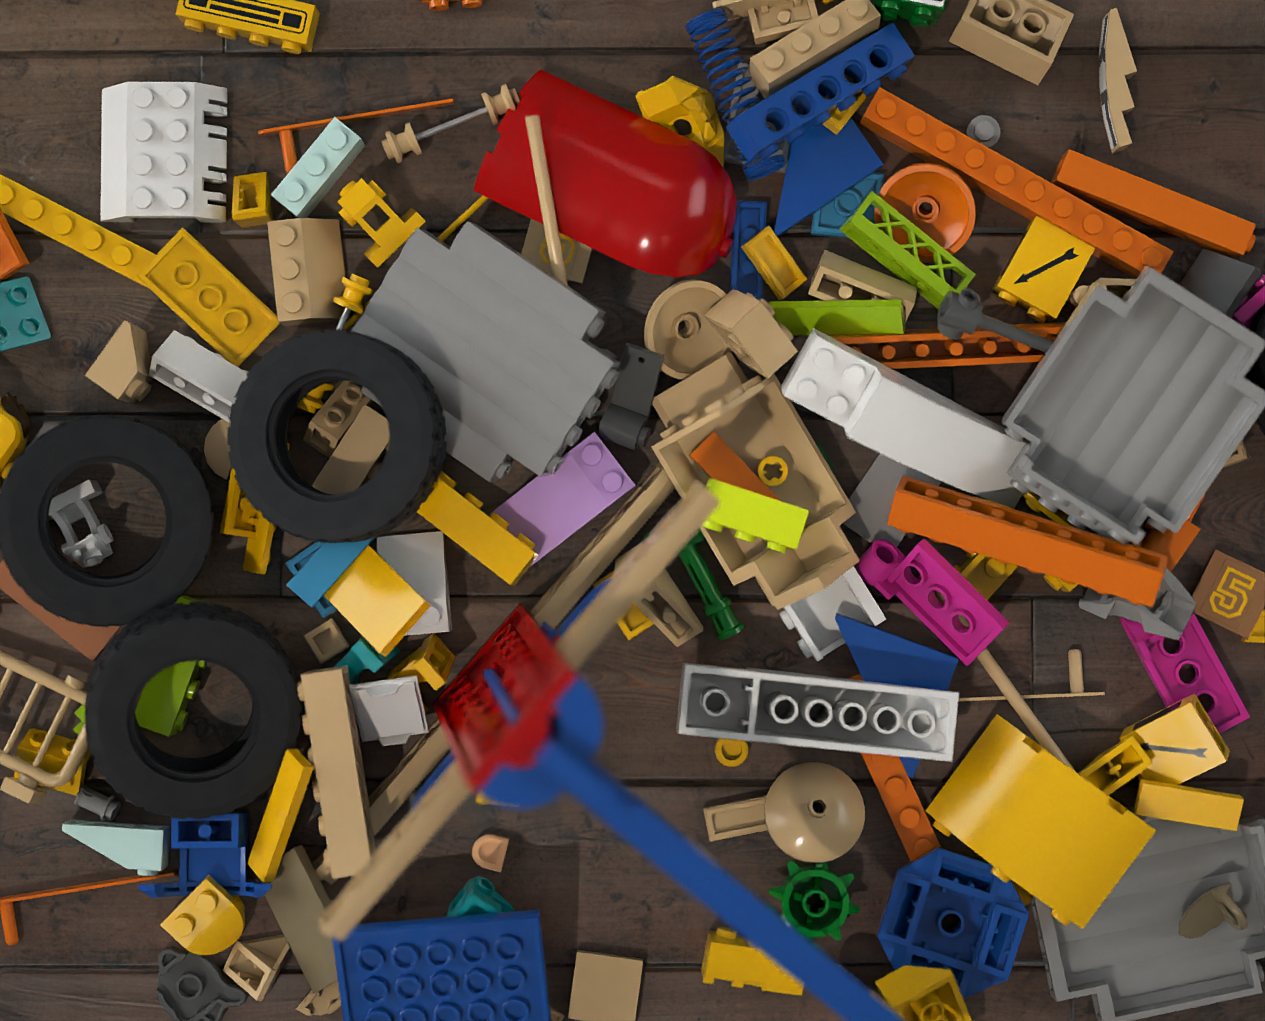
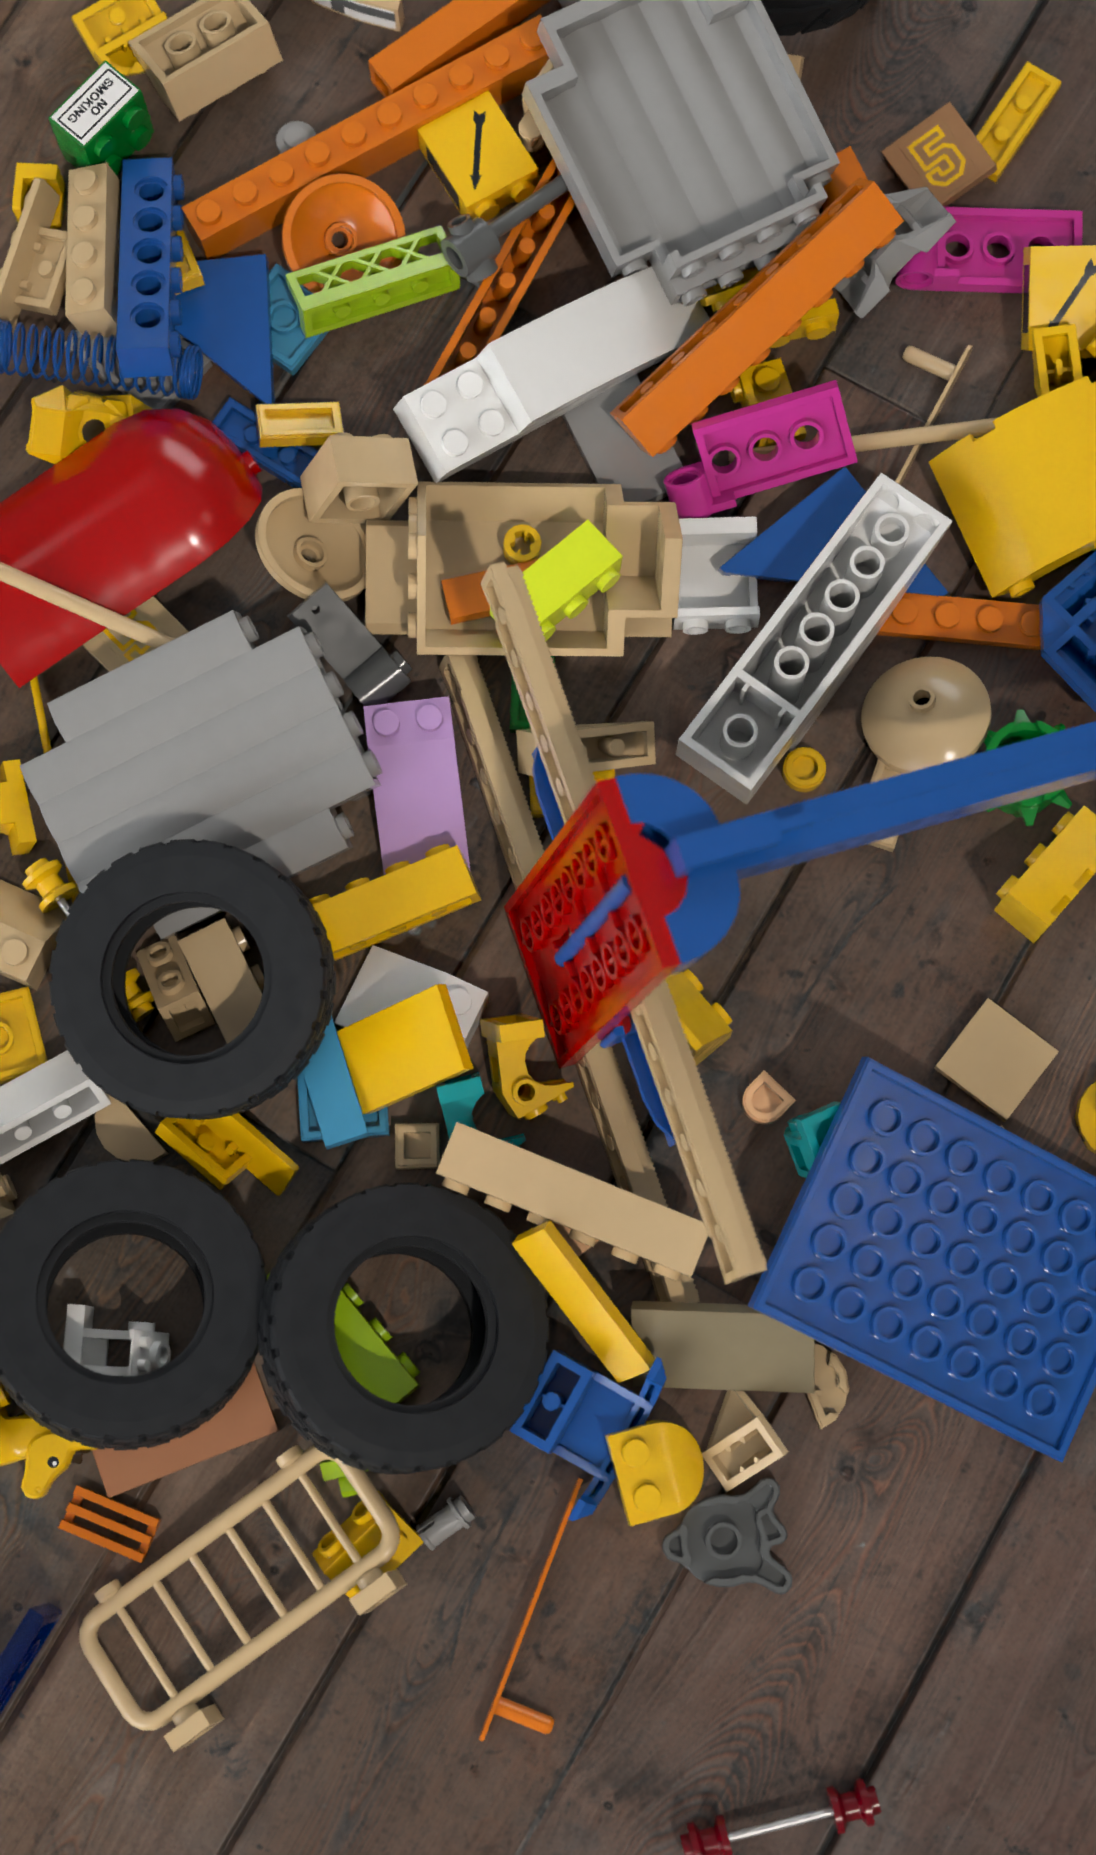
camera: 55 degrees left, 10 degrees down
(127, 844) = (517, 1509): light aqua slope -> none
(389, 710) = (536, 1107): white piece -> none
(715, 603) = (633, 691): green pin -> none
(841, 316) = (404, 371): lime tile -> none
(846, 280) = (386, 347): tan brick -> none

